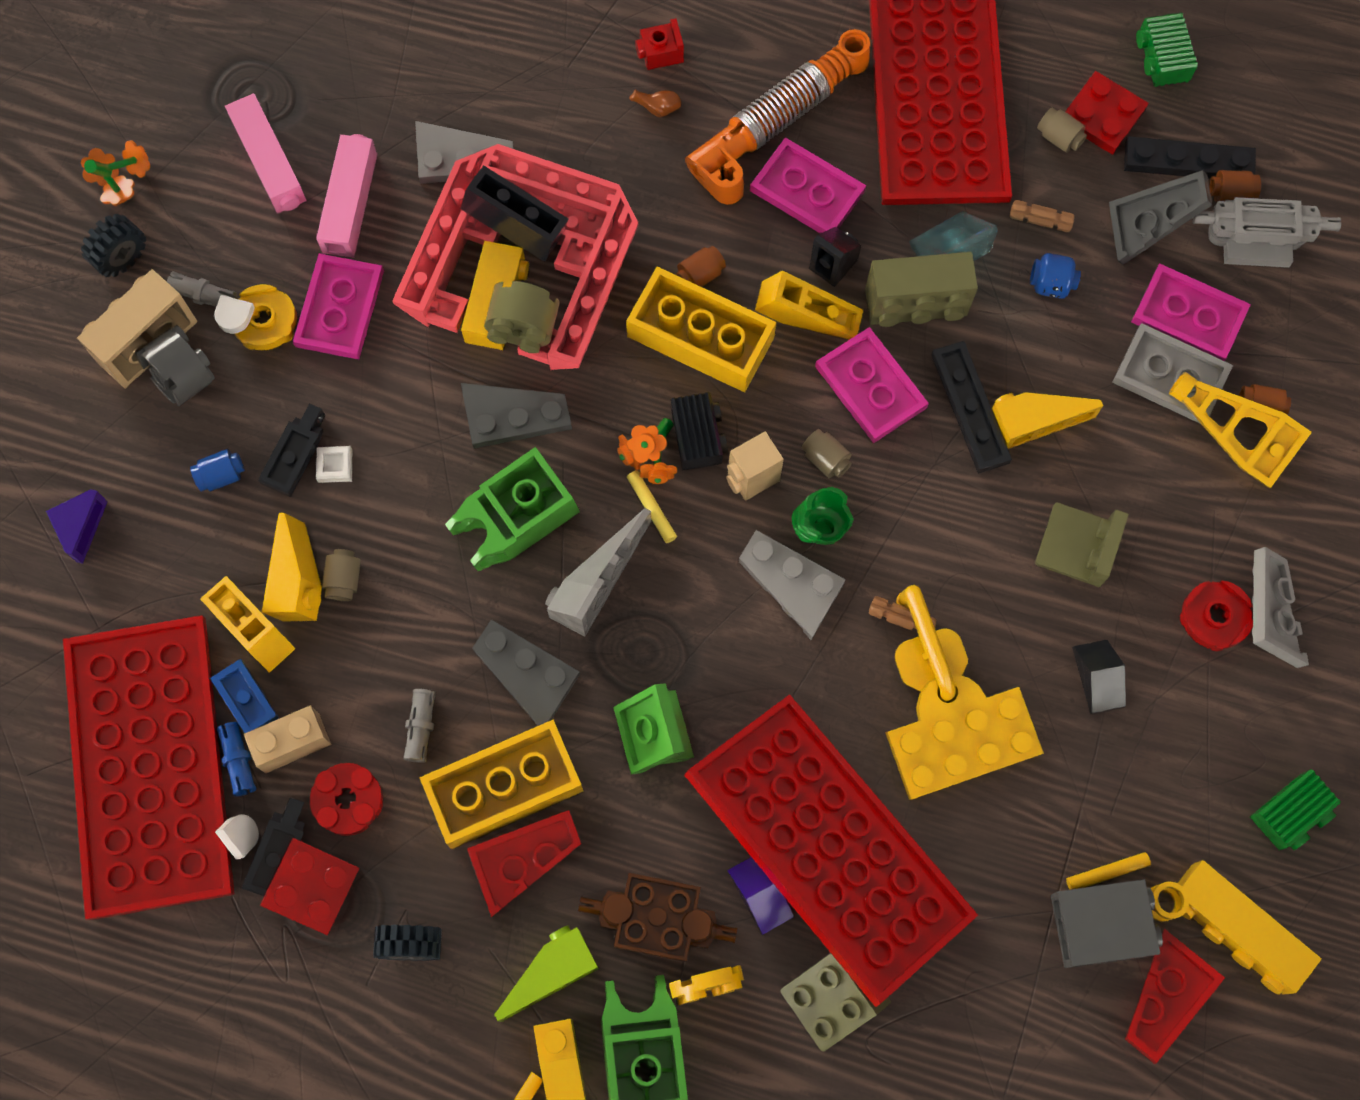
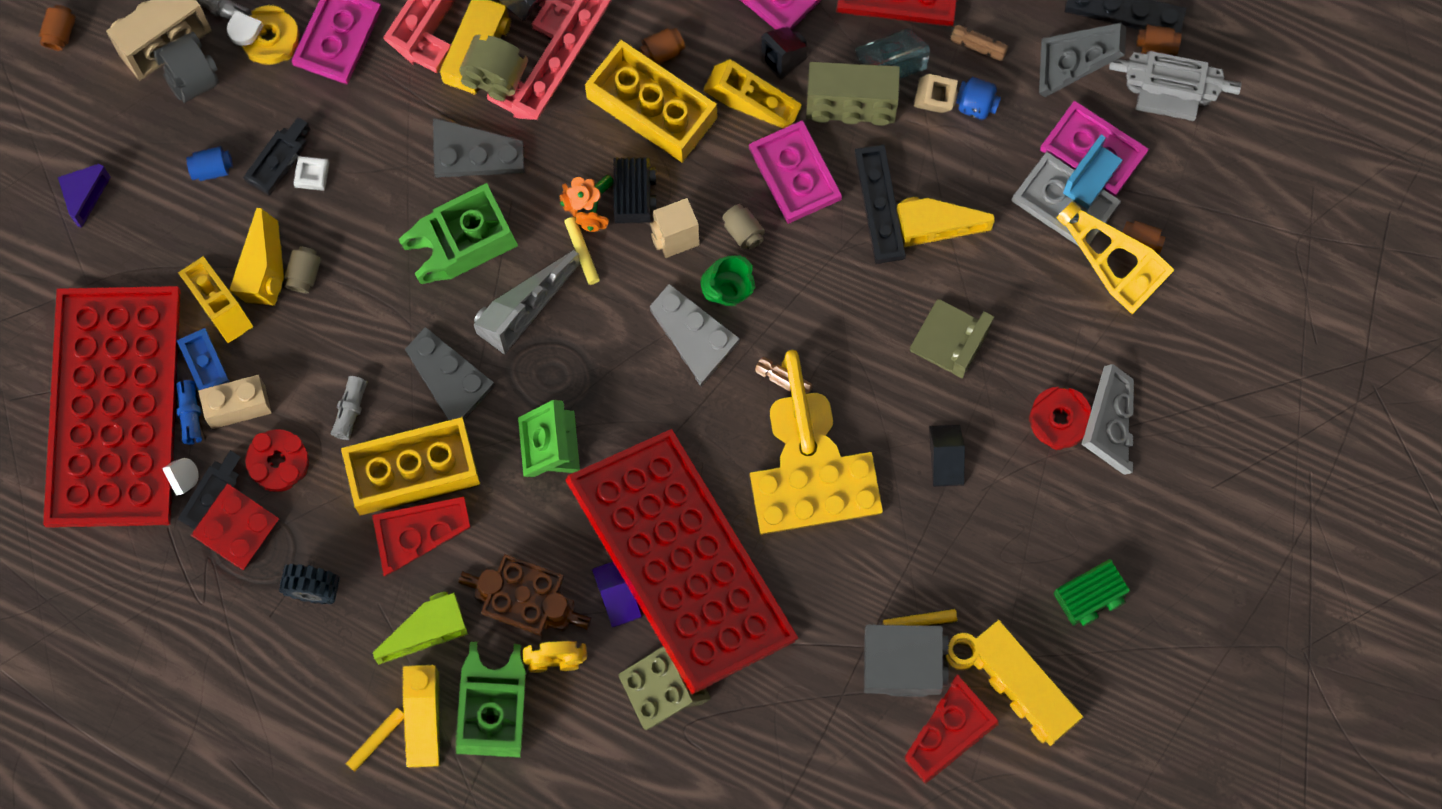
camera: 10 degrees right, 0 degrees up
(22, 343) = (57, 27): none -> dark orange brick
(1010, 276) = (936, 93): none -> tan brick
(1198, 340) = (1092, 174): none -> dark azure panel

